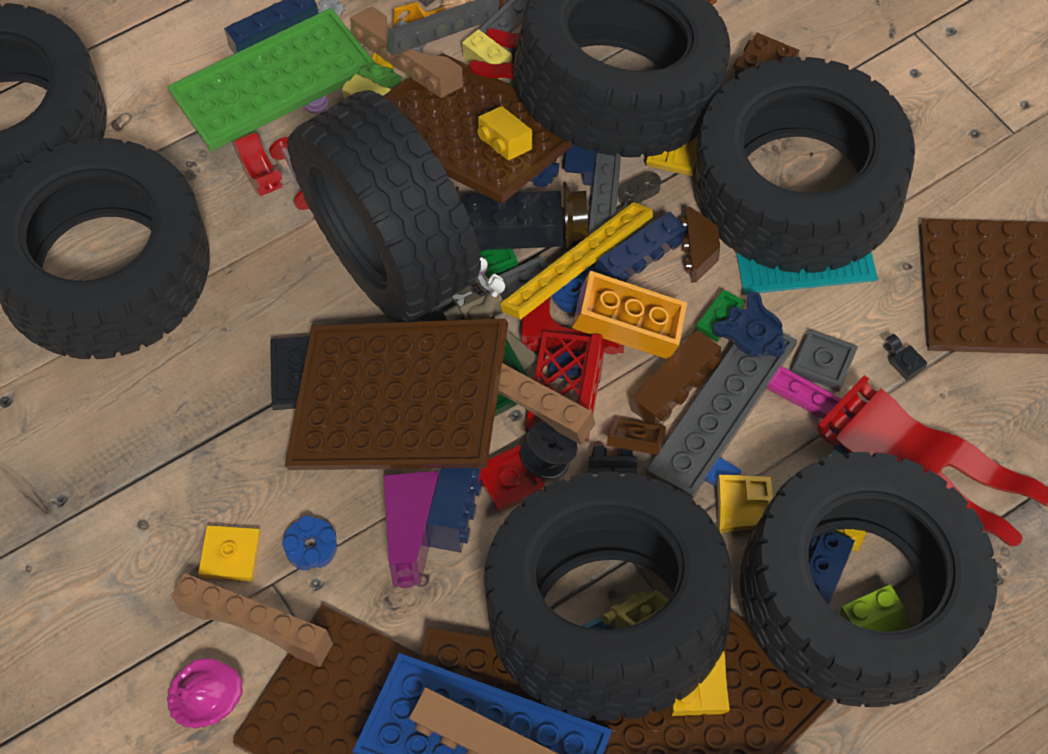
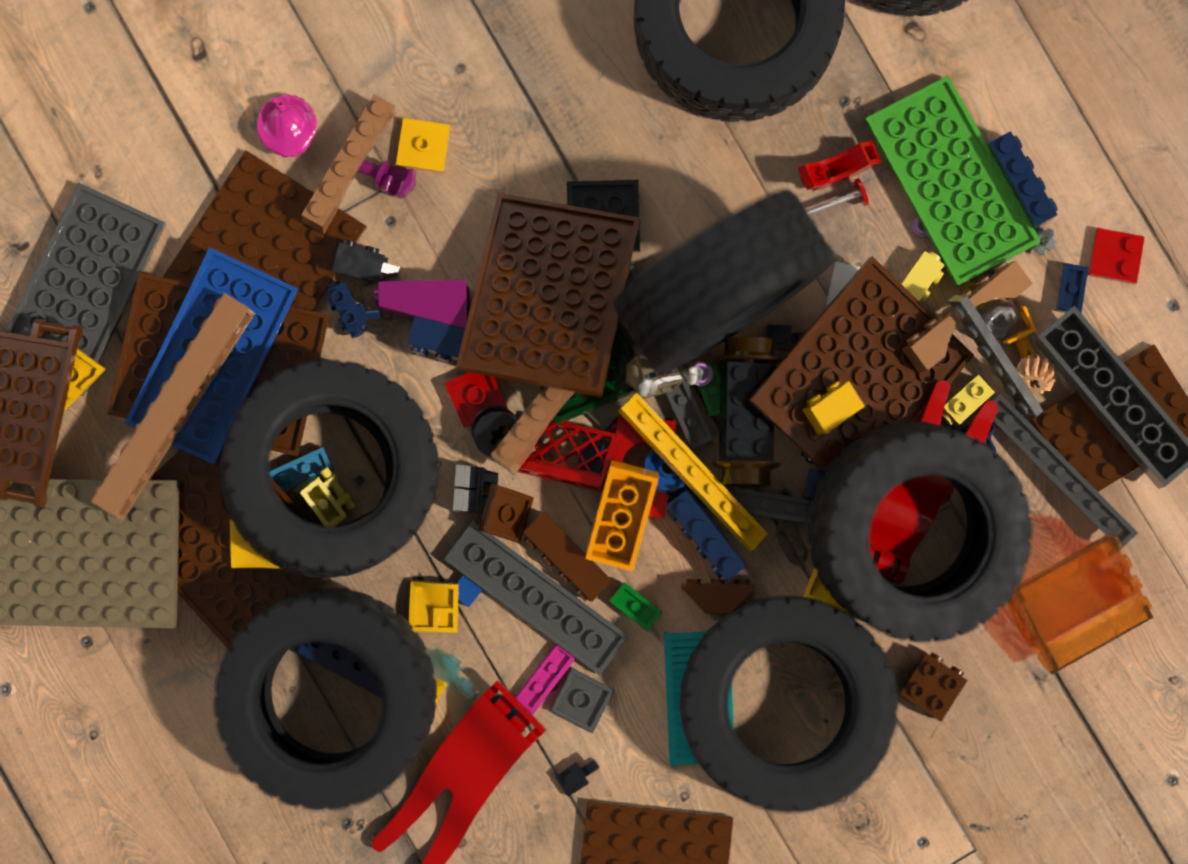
camera: 90 degrees right, 25 degrees up
(269, 575) = (390, 179): none -> magenta piece
(304, 530) = (429, 229): blue plate -> none
(365, 602) = (360, 263): none -> black hinge
(381, 75) = (940, 288): bright green slope -> none
(423, 608) = (352, 315): none -> dark blue brick
(753, 329) = (611, 634): dark blue tile -> none
(877, 611) = (305, 707): lime slope -> none

